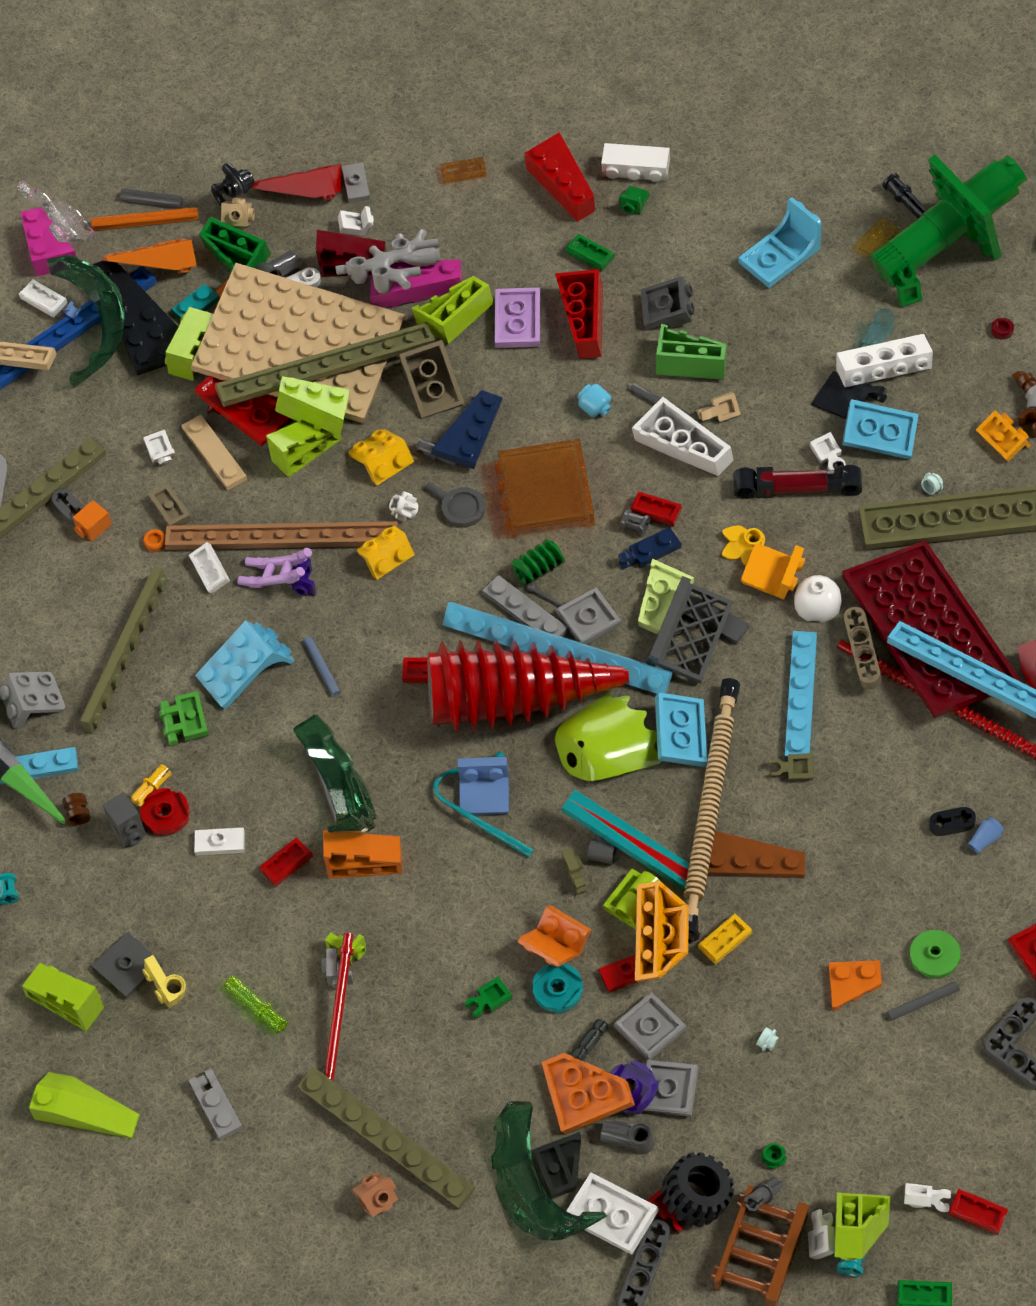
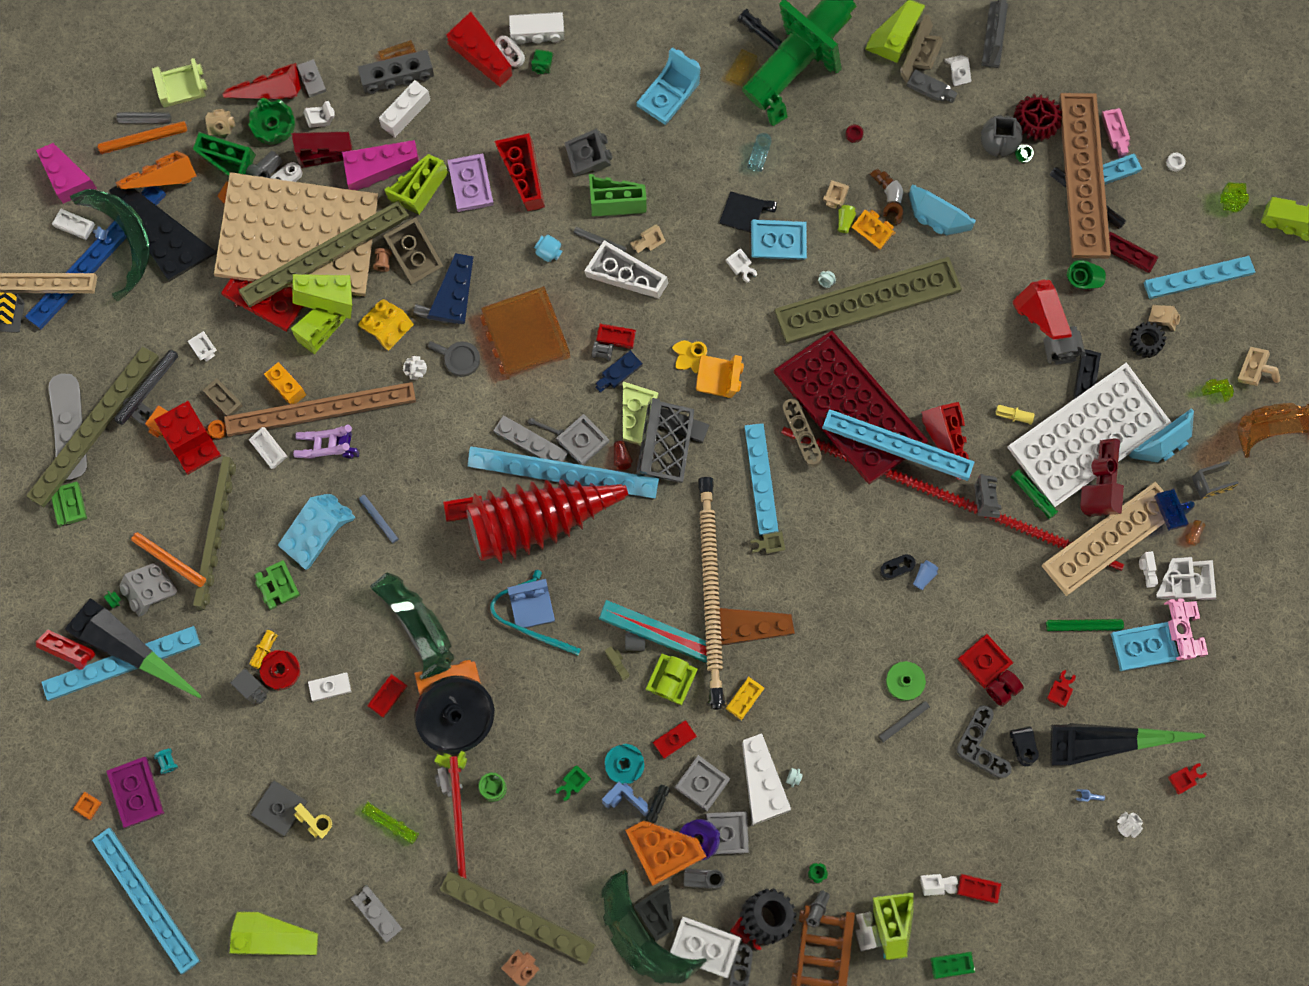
camera: 20 degrees left, 15 degrees up
(64, 668) = (168, 559): none -> orange axle
(64, 995) = (234, 846): lime wedge -> none
(69, 224) = (82, 153): clear wing -> none
(76, 809) = (207, 681): reddish brown wheel -> none
(83, 480) = (145, 388): none -> black axle
(118, 540) = (187, 437): none -> red bracket
(186, 343) = (205, 249): lime wedge -> none
(200, 168) = (180, 84): none -> yellowish green panel
(200, 299) = (203, 210): teal plate -> none
(214, 452) = (248, 341): tan plate -> none
(234, 184) = (212, 98): black piece -> none
(245, 500) = (285, 384): none -> light orange brick
(295, 210) = (266, 112): none -> green plate
(361, 889) = (454, 714): none -> black dish
(386, 551) = (409, 410): yellow bracket -> none
(389, 982) = (492, 787): none -> bright green wheel
(392, 386) = (382, 259): none -> nougat bush
(414, 252) = (351, 152): light grey plant -> none
(456, 187) = (400, 64): none -> dark grey brick
(459, 225) = (404, 109): none -> white brick
(536, 560) = (532, 398): green piece -> none
(542, 1012) = (614, 797): none -> medium blue bracket
(556, 937) = (615, 725): orange bracket -> none
(590, 252) = (516, 115): green plate -> none
(598, 184) = (511, 51): none -> white plate
(611, 737) = (622, 542): lime piece -> none
(632, 644) = (622, 458): none -> clear red cone
(660, 930) = (698, 709): light orange wedge -> none
(681, 729) = (675, 527): medium azure plate -> none
(726, 1040) = (763, 783): none -> white wedge
(766, 482) = (700, 299): black piece -> none
(817, 599) = (758, 394): white cylinder -> none
(852, 980) = (848, 715): orange wing -> none
(884, 360) = (770, 178): white brick -> none
(963, 391) = (836, 194): none -> tan bracket
(970, 419) = (846, 217): none -> lime cone

